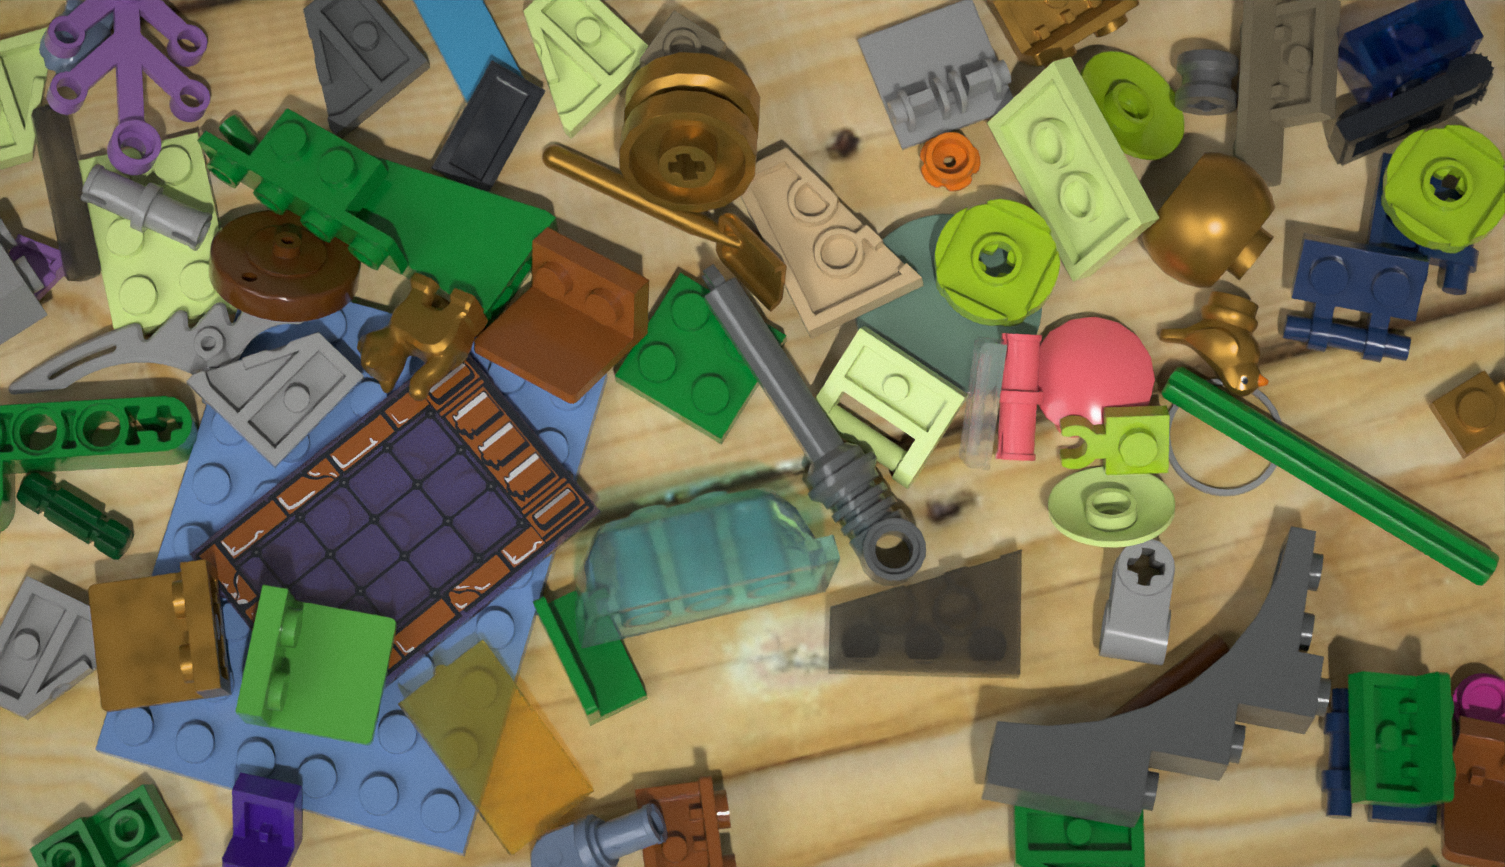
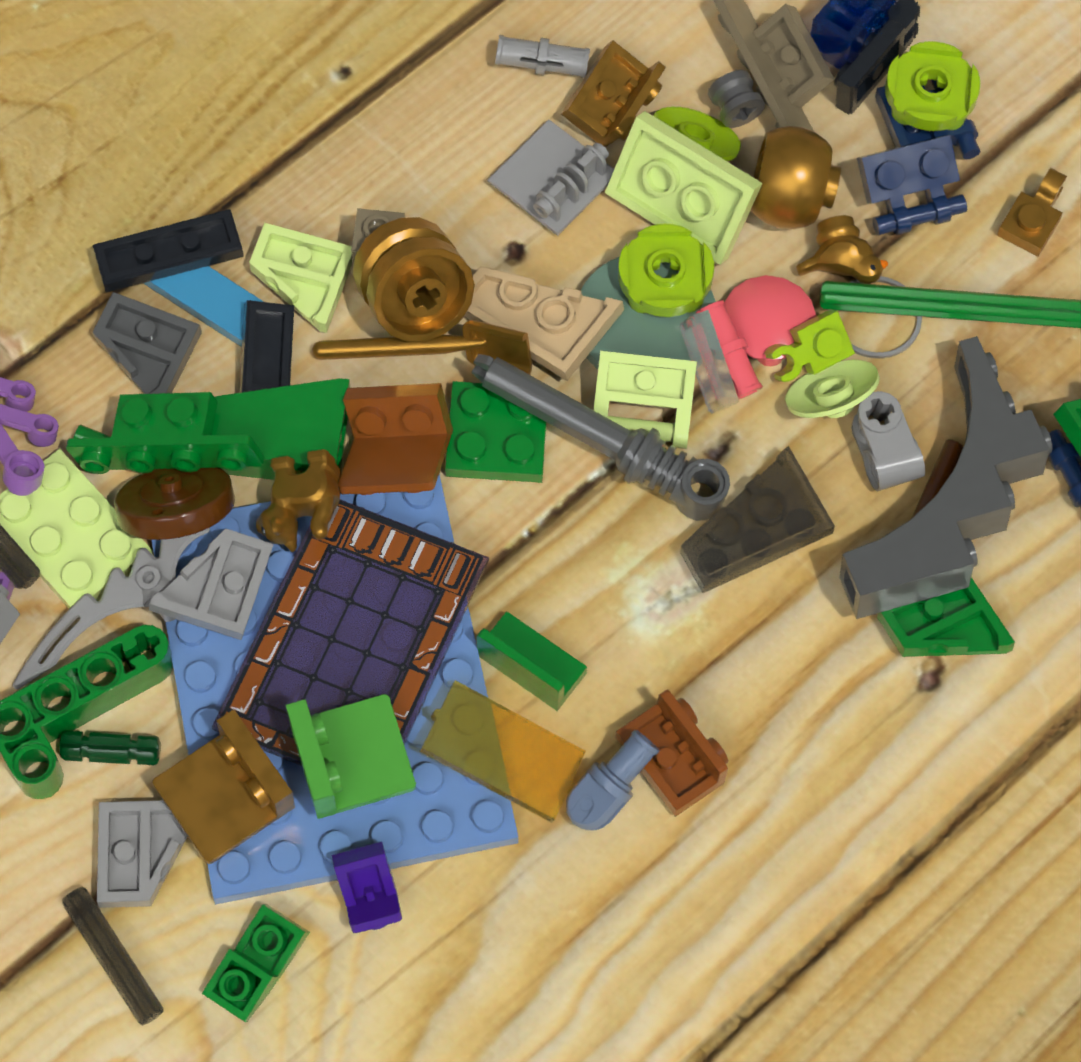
camera: 30 degrees left, 10 degrees down
(146, 207) = (53, 508): light grey pin -> none
(697, 564) = (578, 557): clear light blue windscreen -> none
(954, 146) = (594, 216): orange plate -> none

